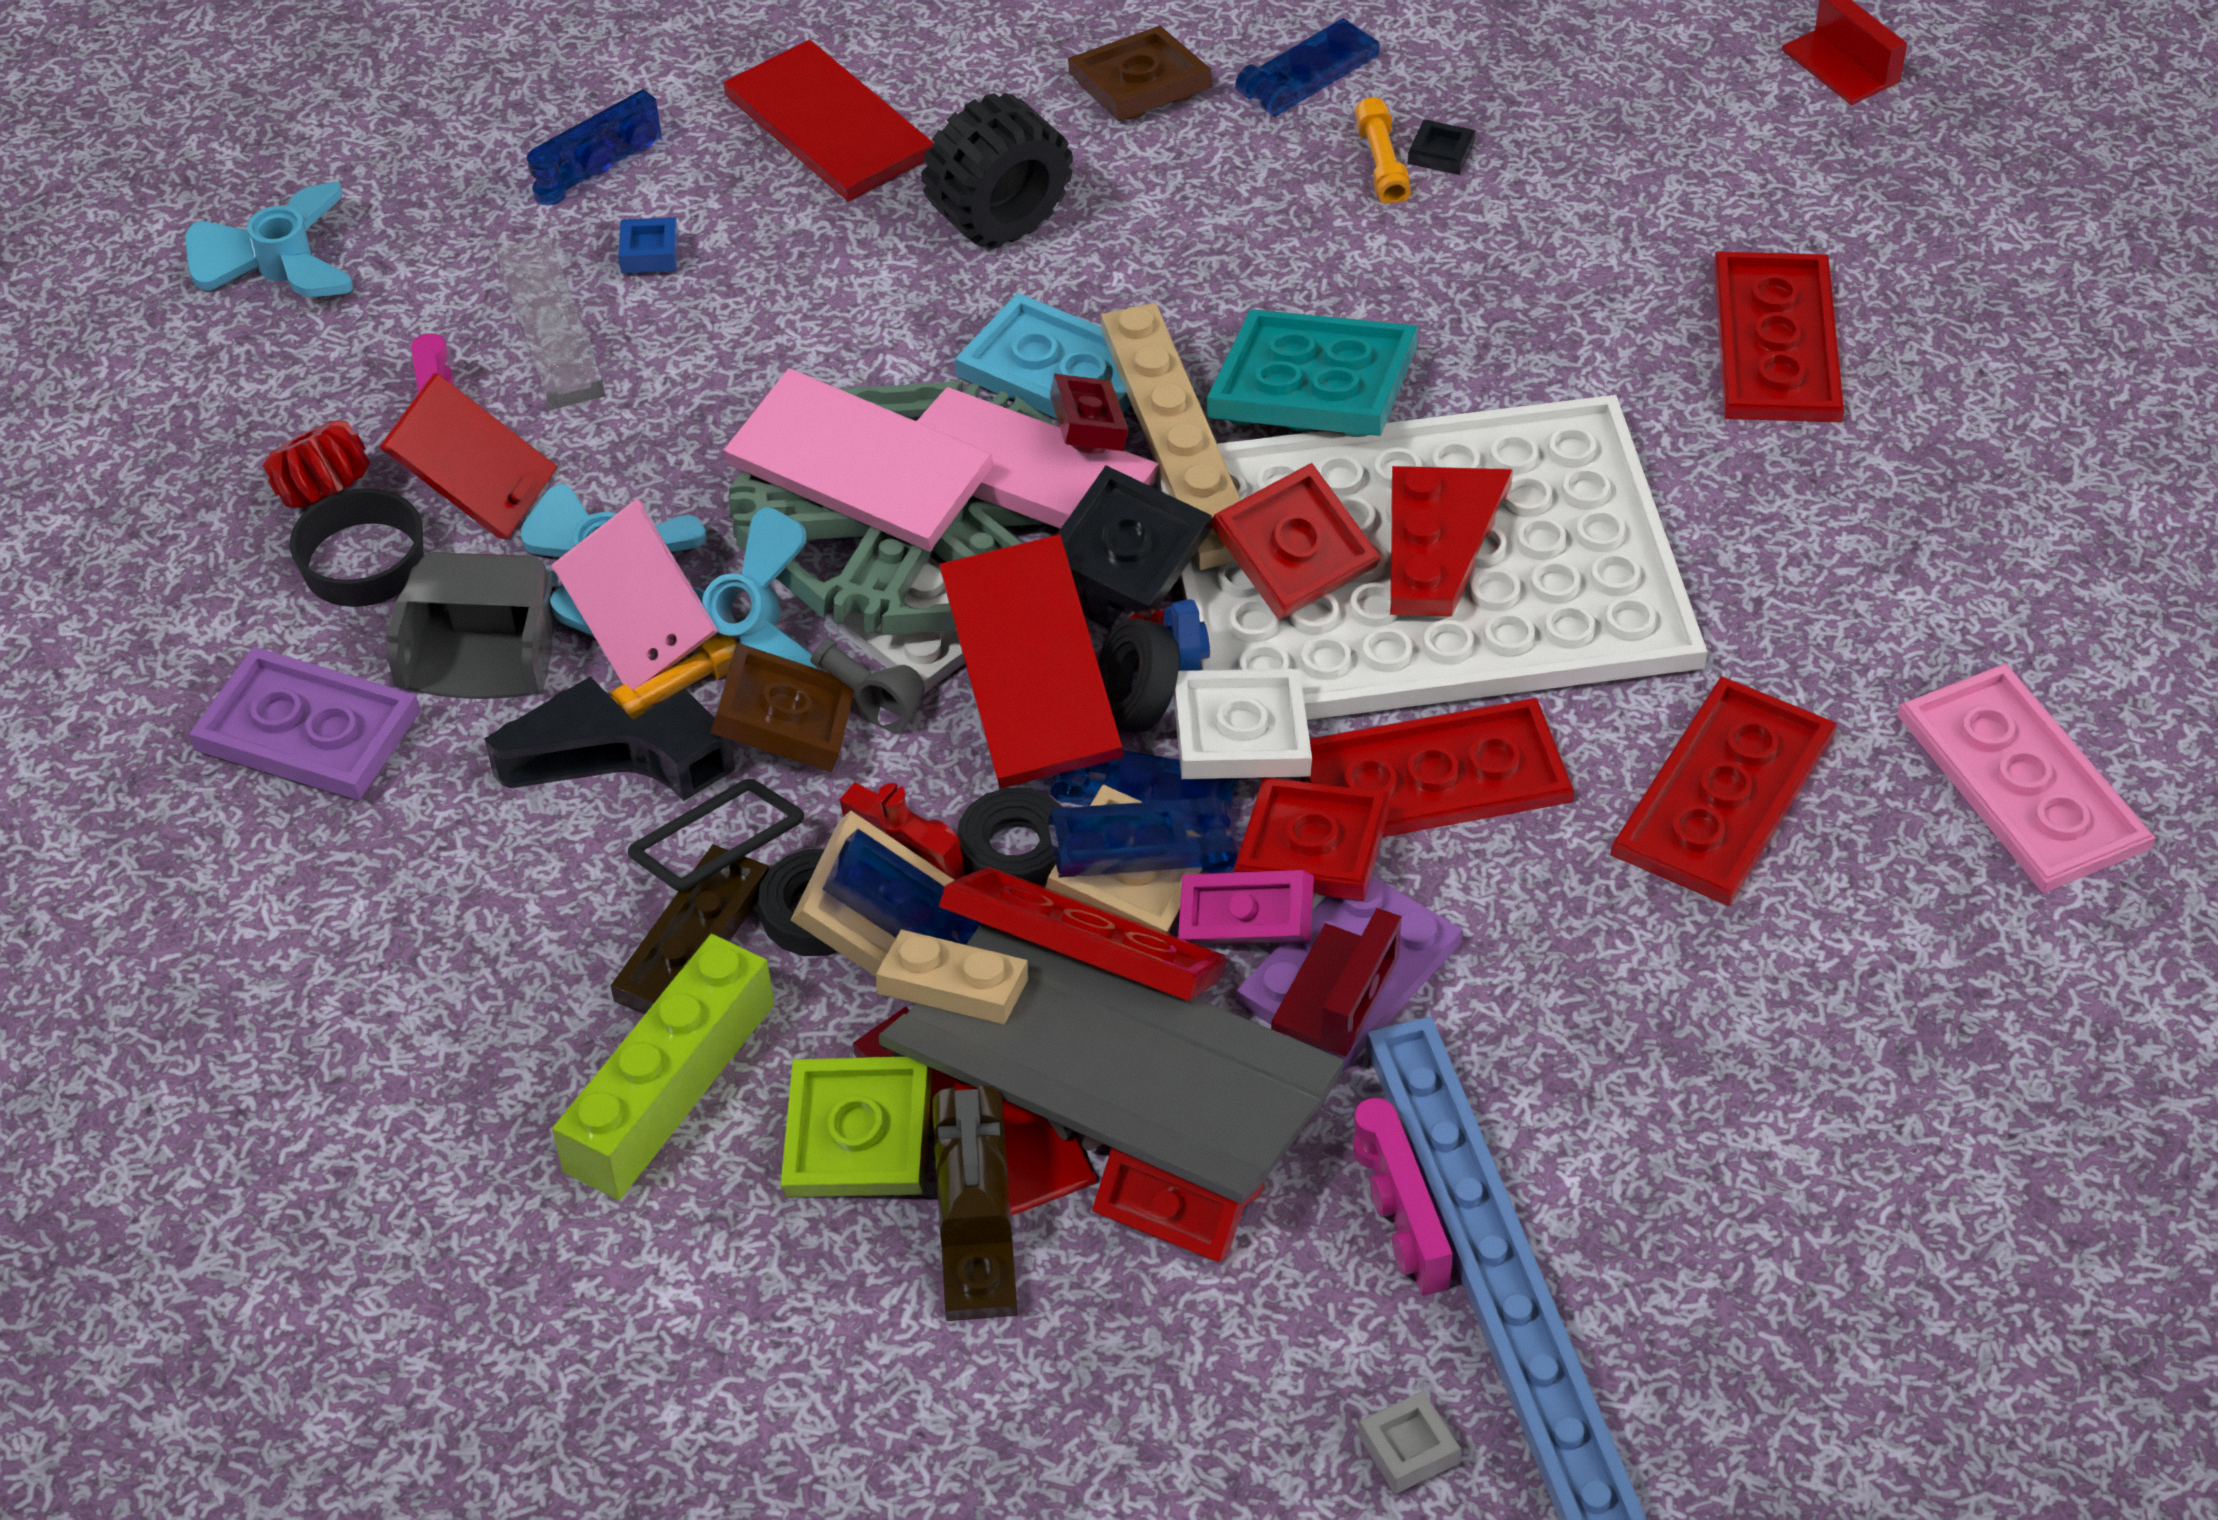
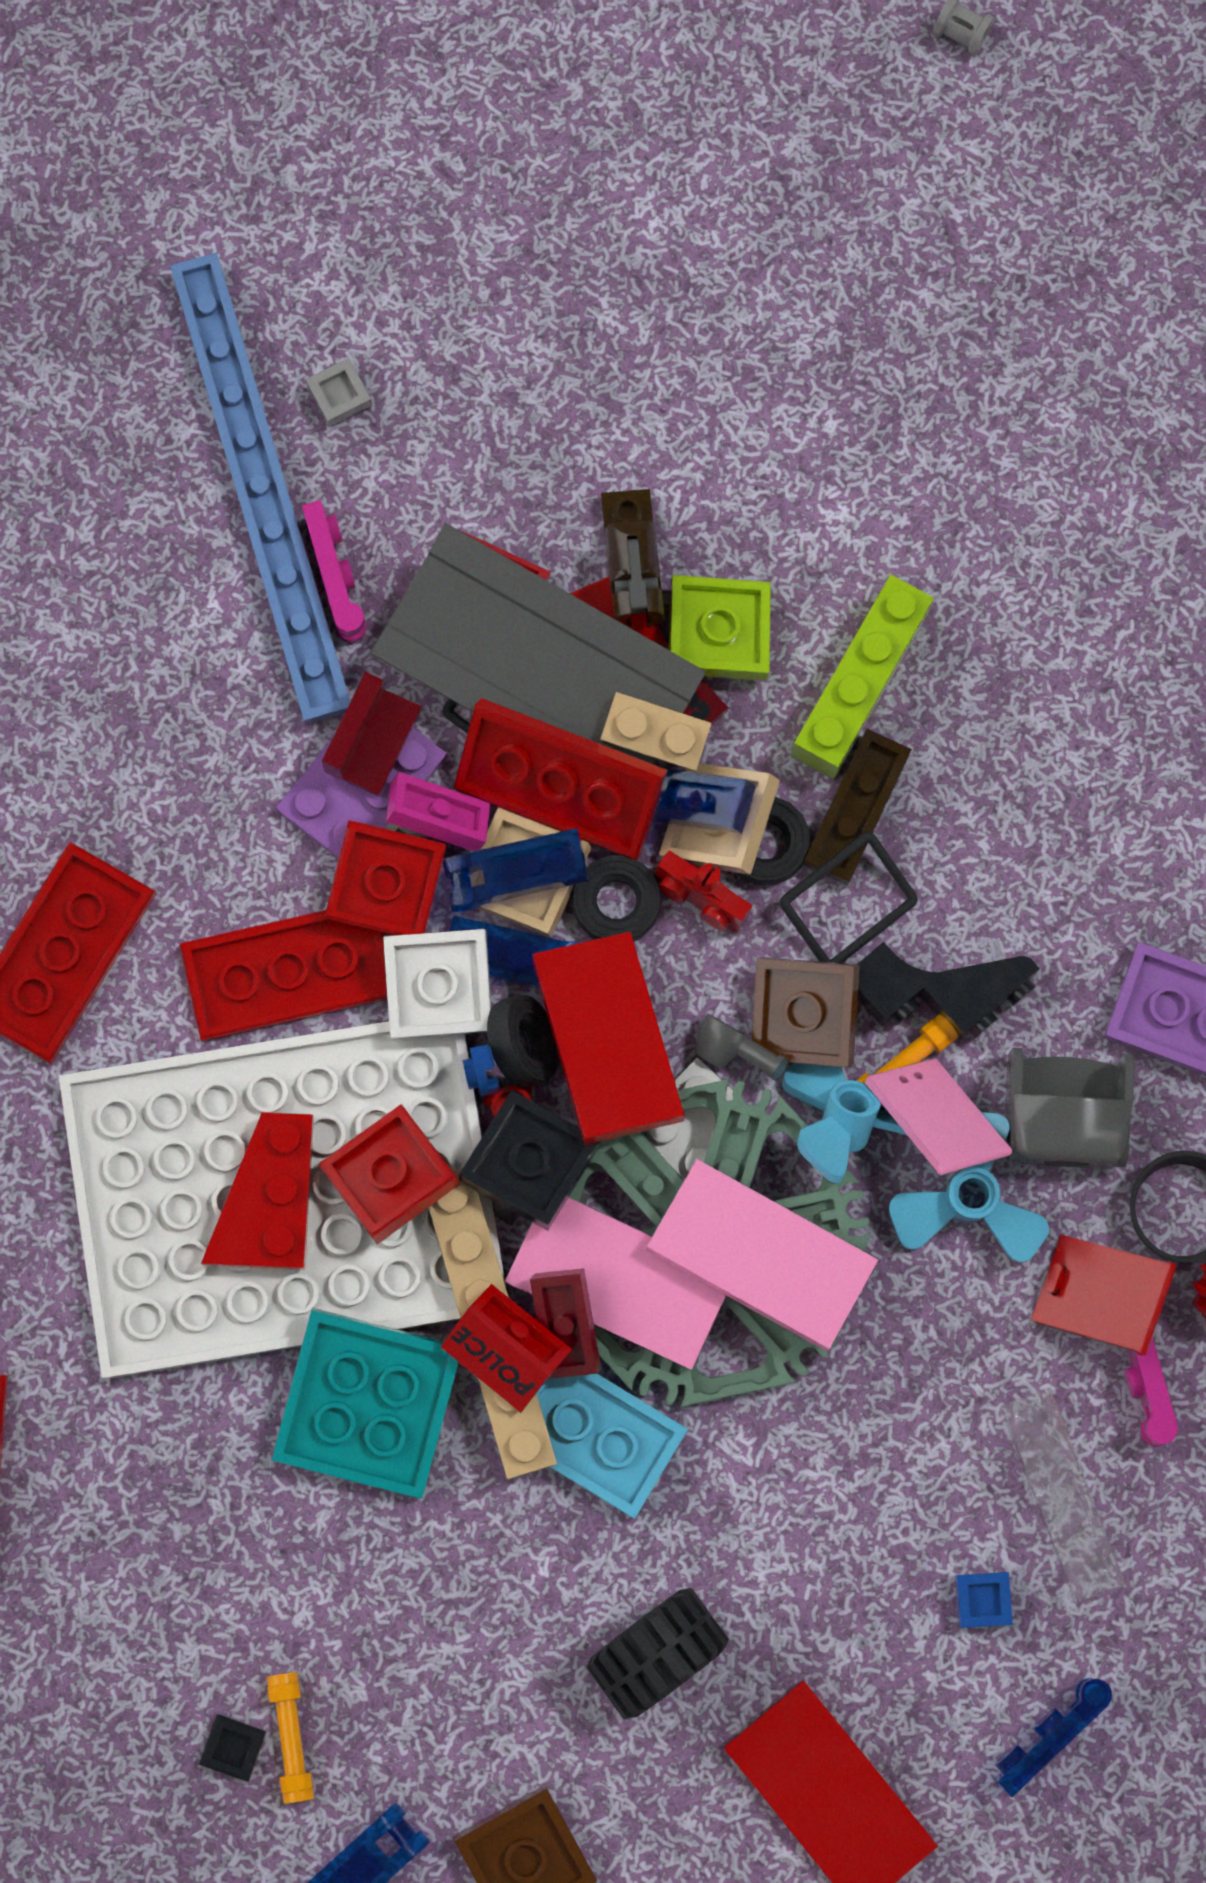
camera: 175 degrees right, 30 degrees up
(1149, 379) = (505, 1347): none -> red panel

